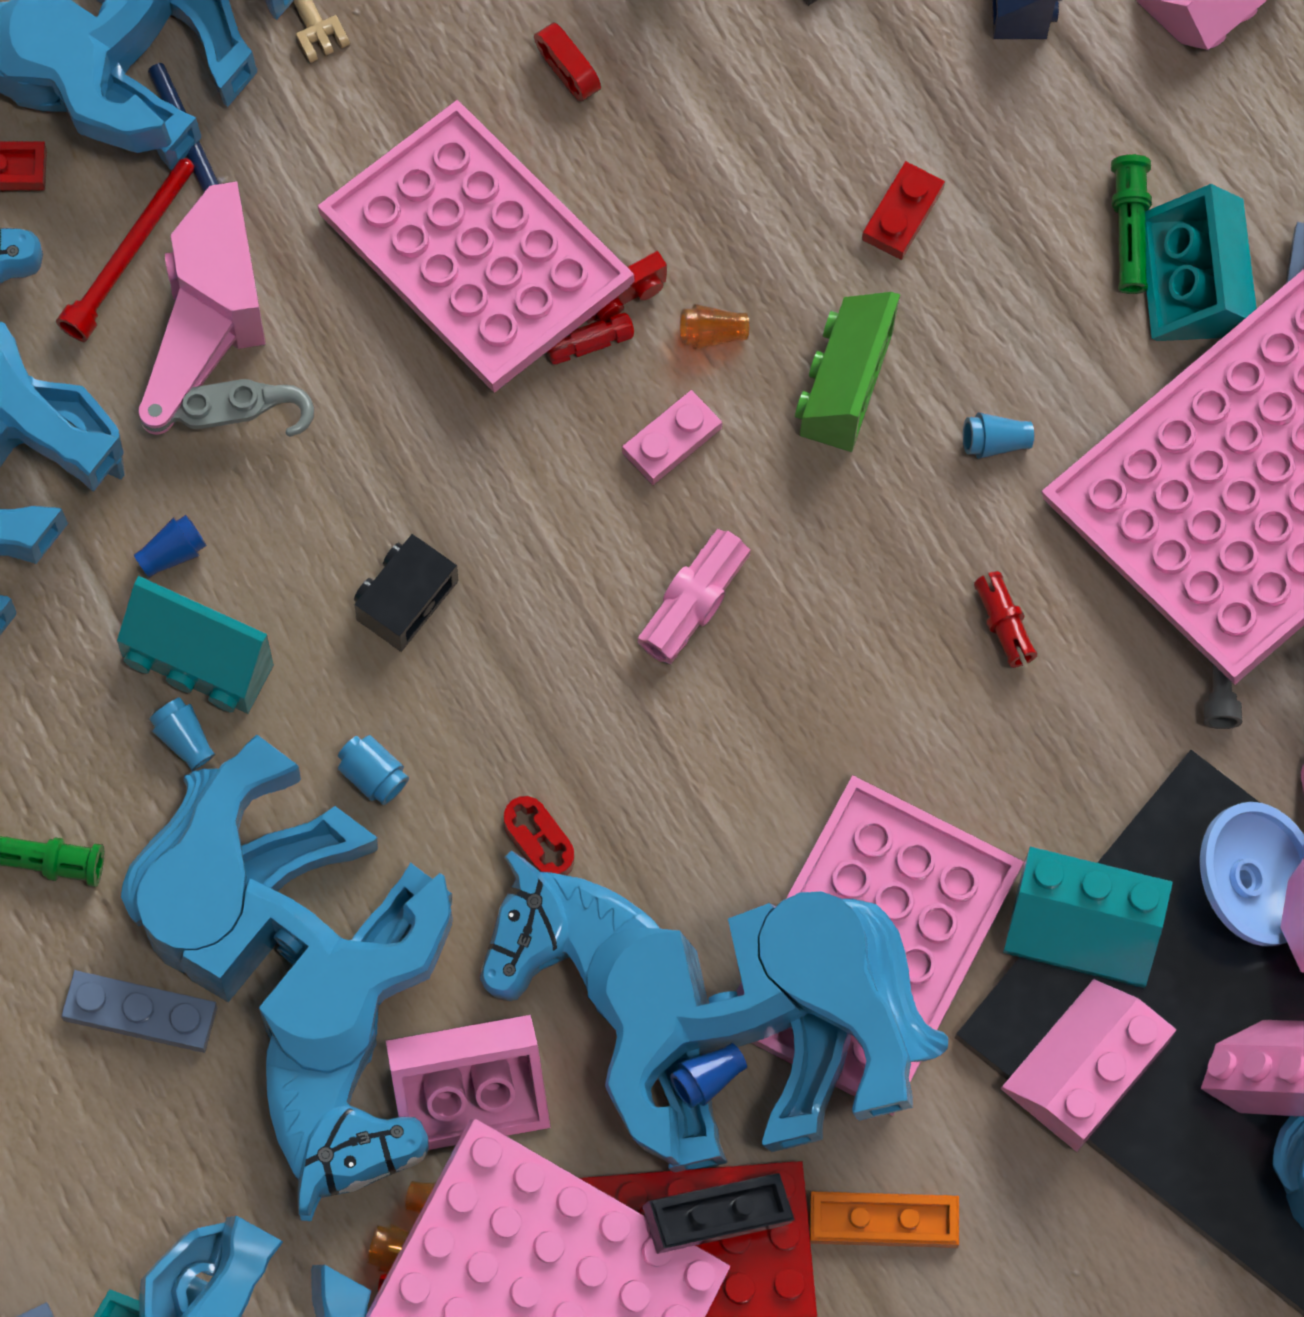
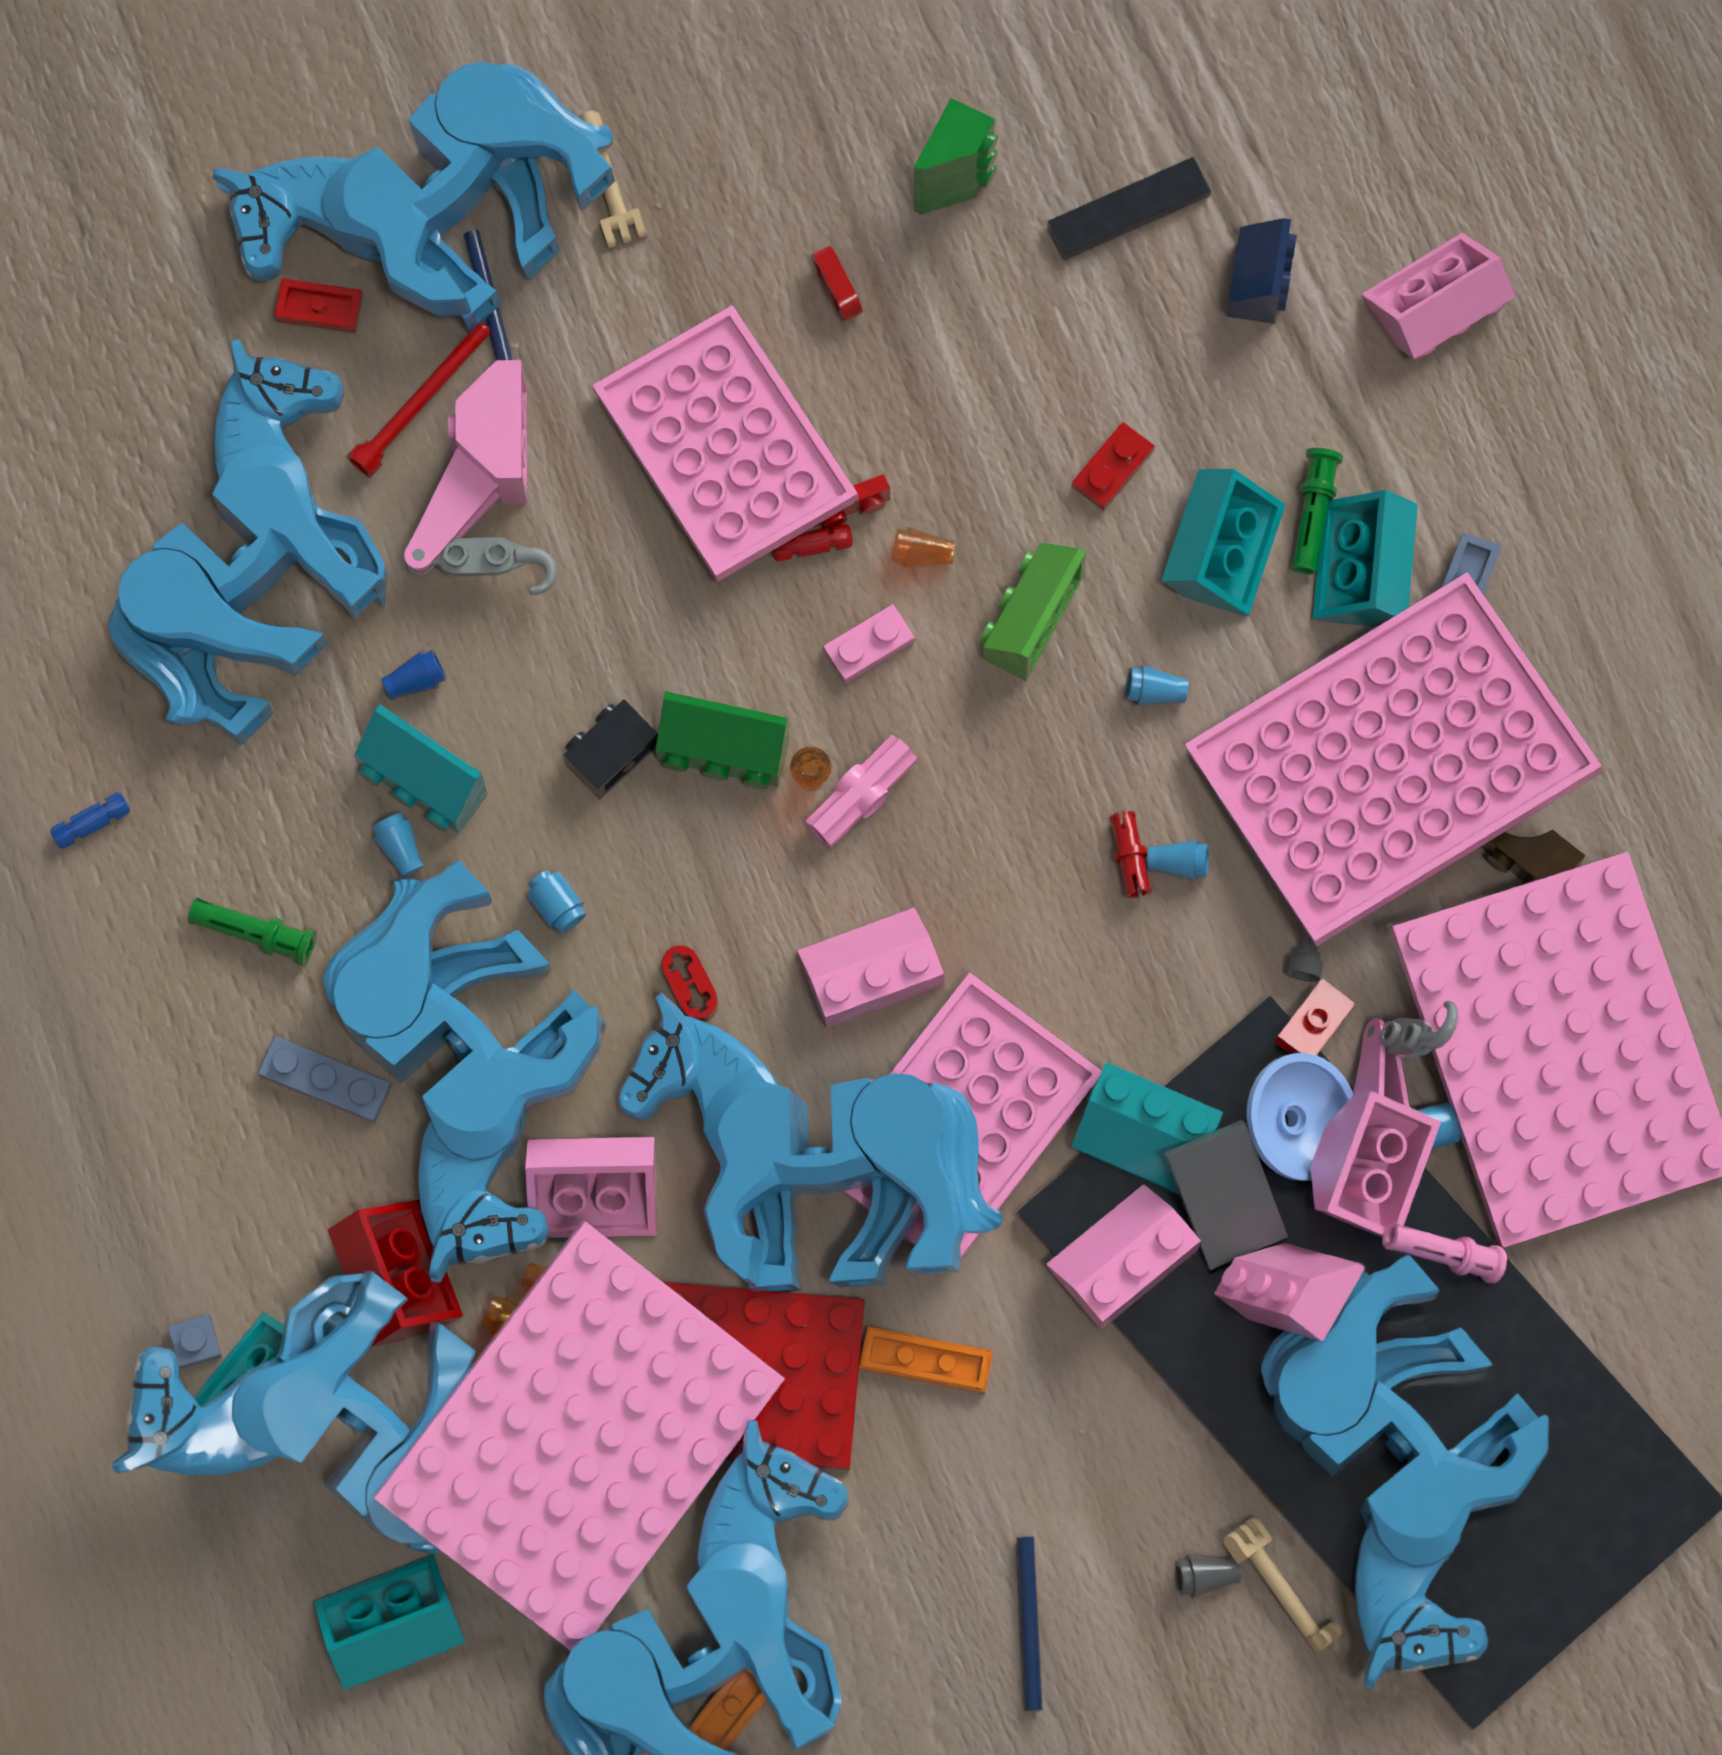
camera: 15 degrees right, 5 degrees up
(258, 1185) = (398, 1249): none -> red slope
(529, 561) = (722, 740): none -> green slope
(635, 578) = (810, 760): none -> clear orange cone
(706, 1075) = (791, 1214): blue cone -> none
(718, 1213) = (781, 1332): black tile -> none
(741, 787) = (871, 967): none -> bright pink slope
(1040, 269) = (1223, 540): none -> teal slope
(1061, 616) = (1180, 859): none -> dark azure cone
(1192, 973) = (1226, 1194): none -> dark grey tile
(1246, 767) = (1315, 1020): none -> plate

